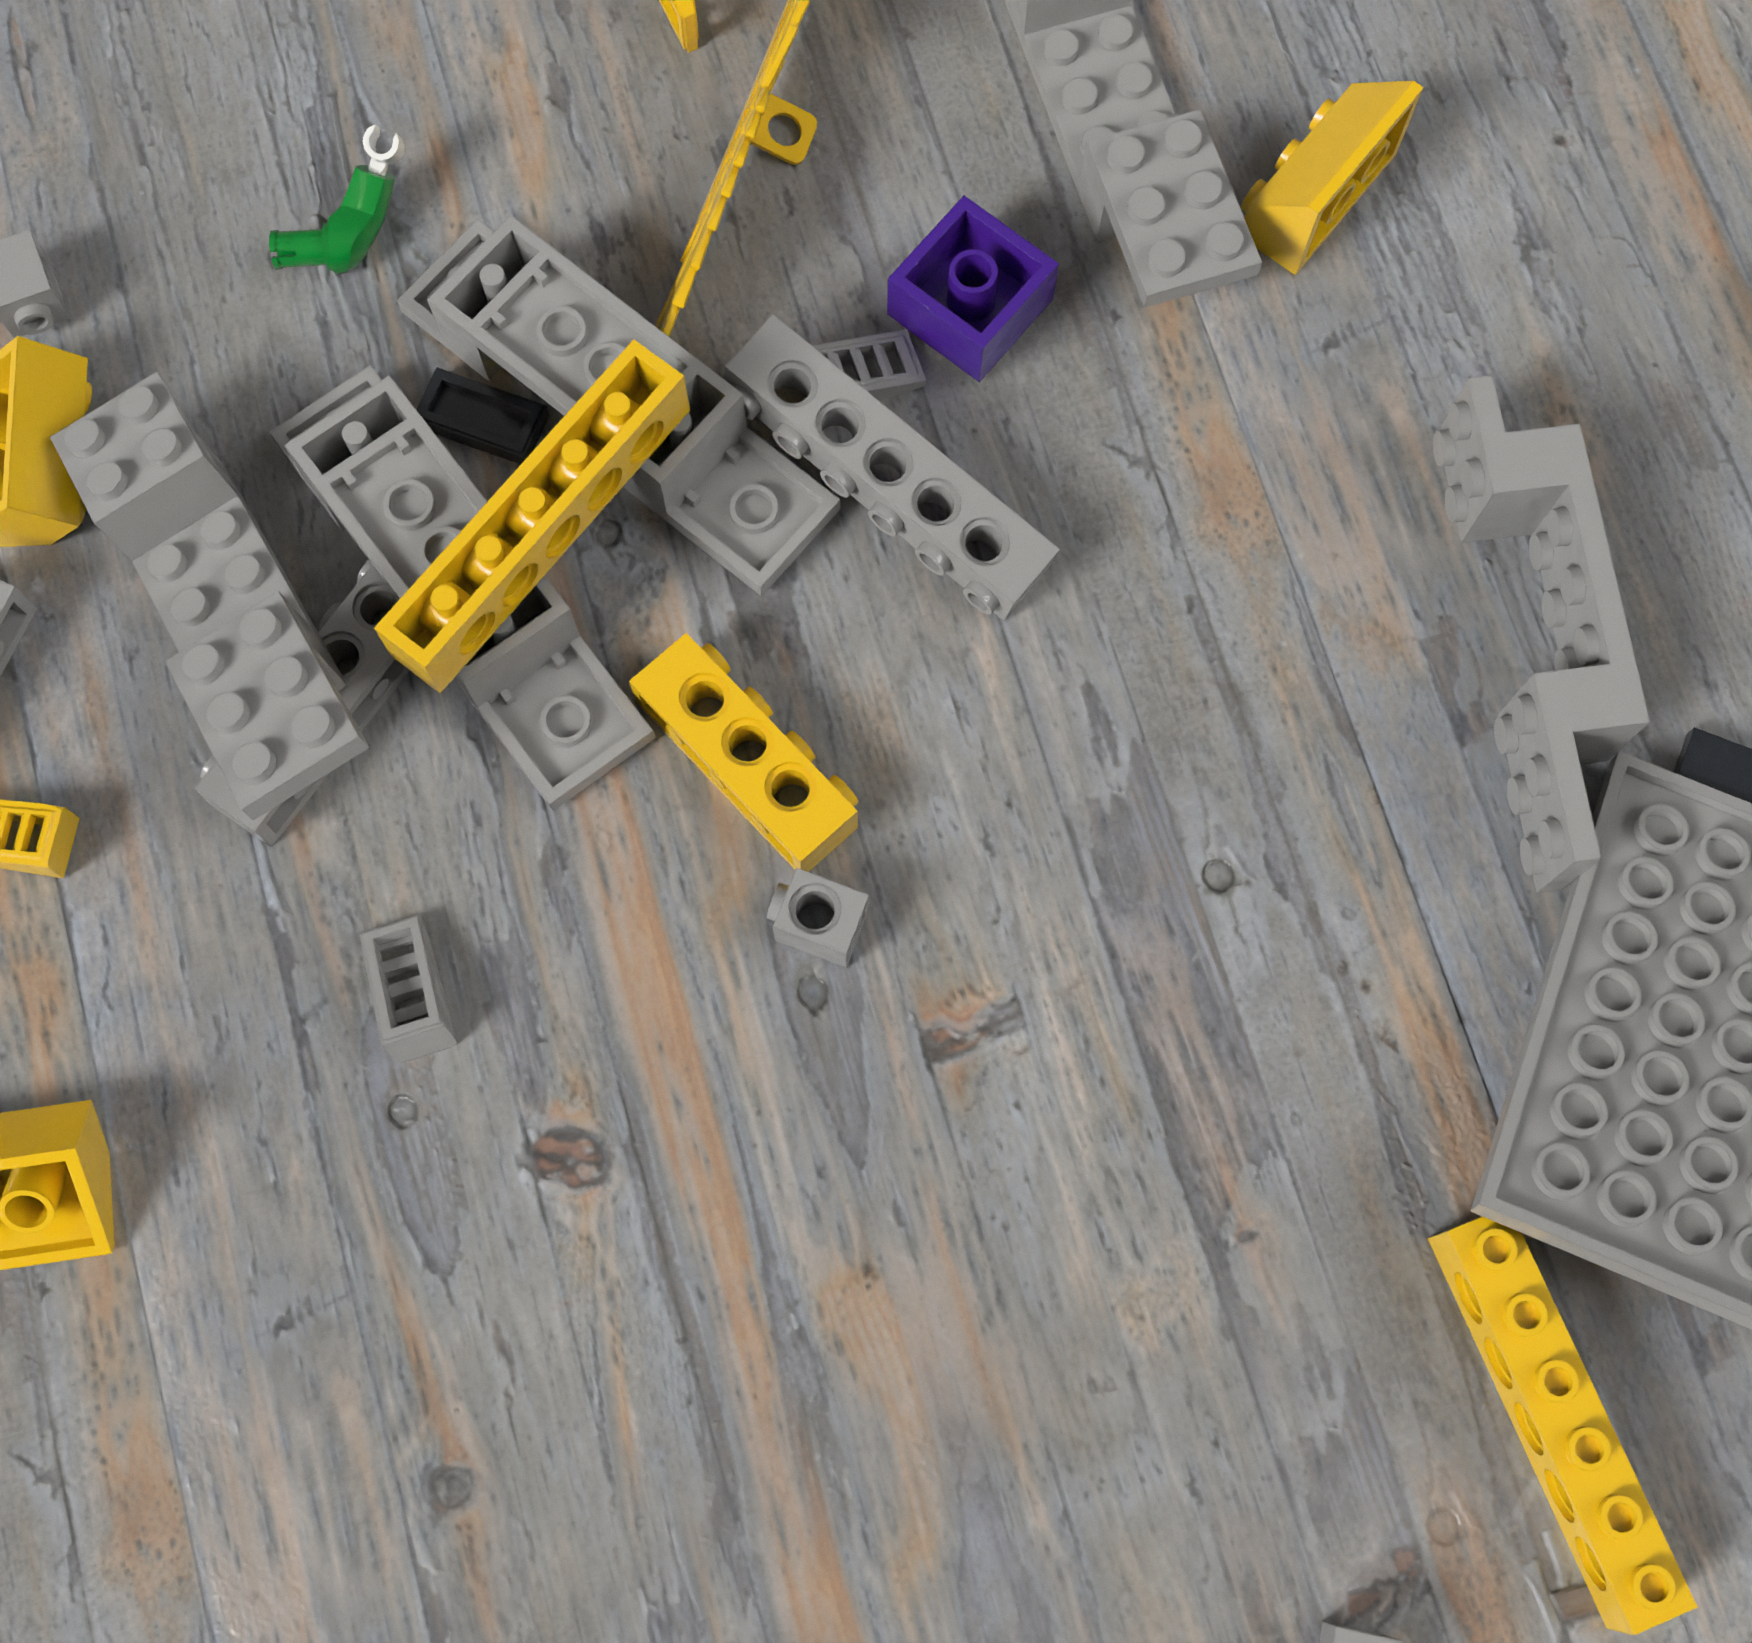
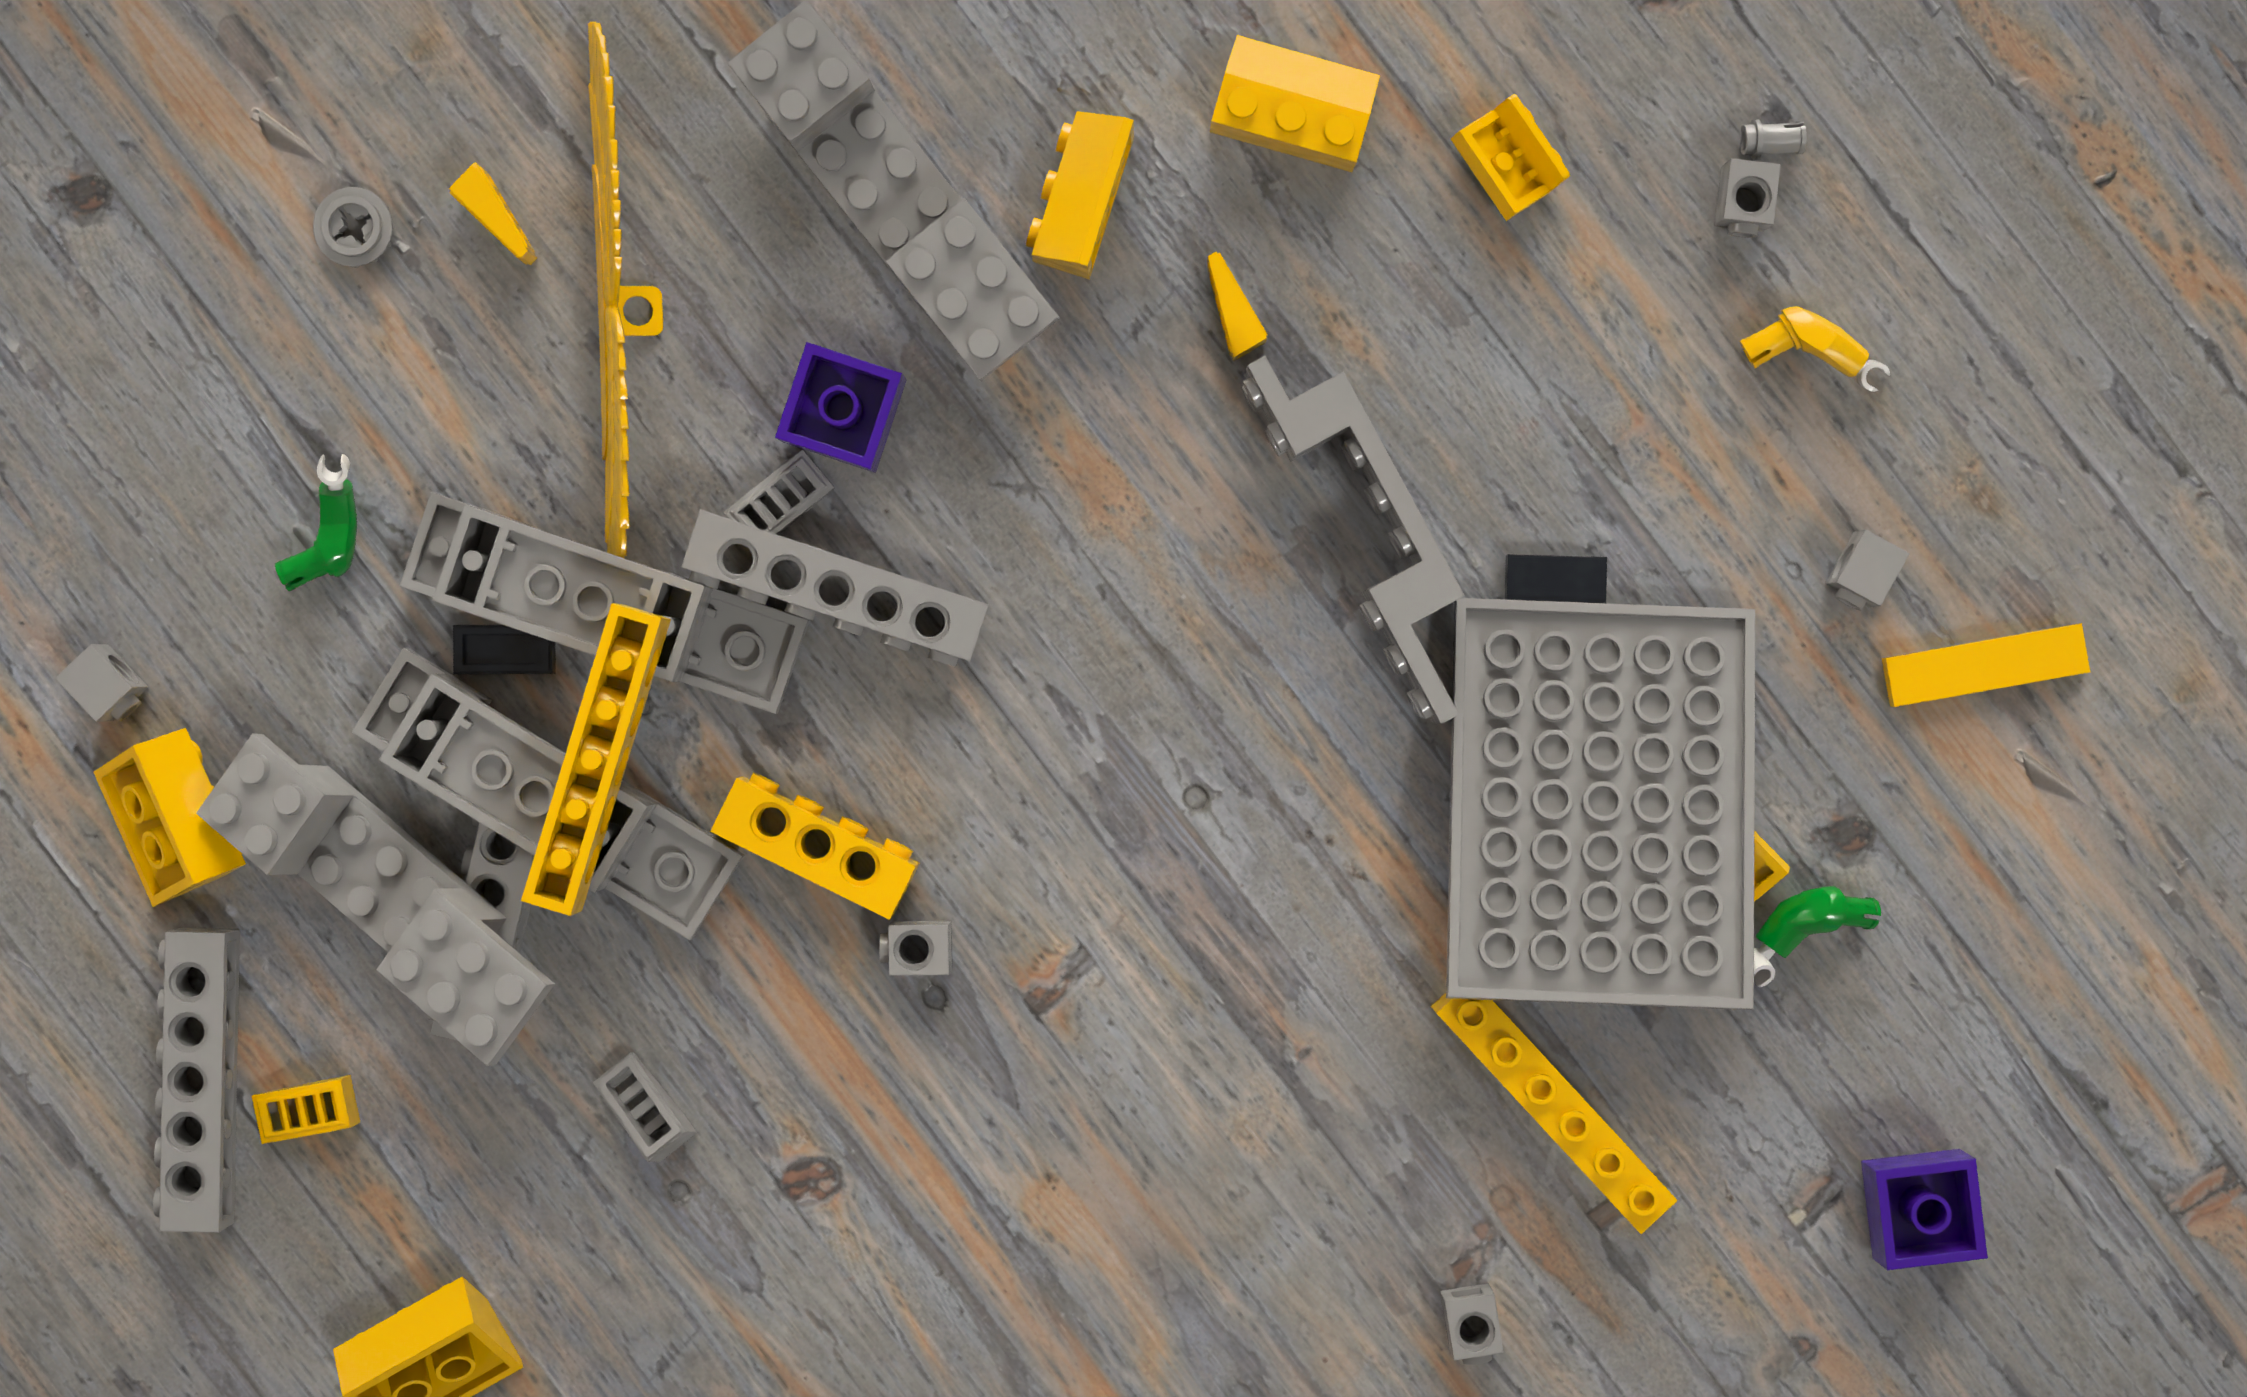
camera: 20 degrees left, 15 degrees up
(1455, 345) = (1239, 322): none -> yellow slope
(1586, 178) = (1294, 103): none -> yellow slope

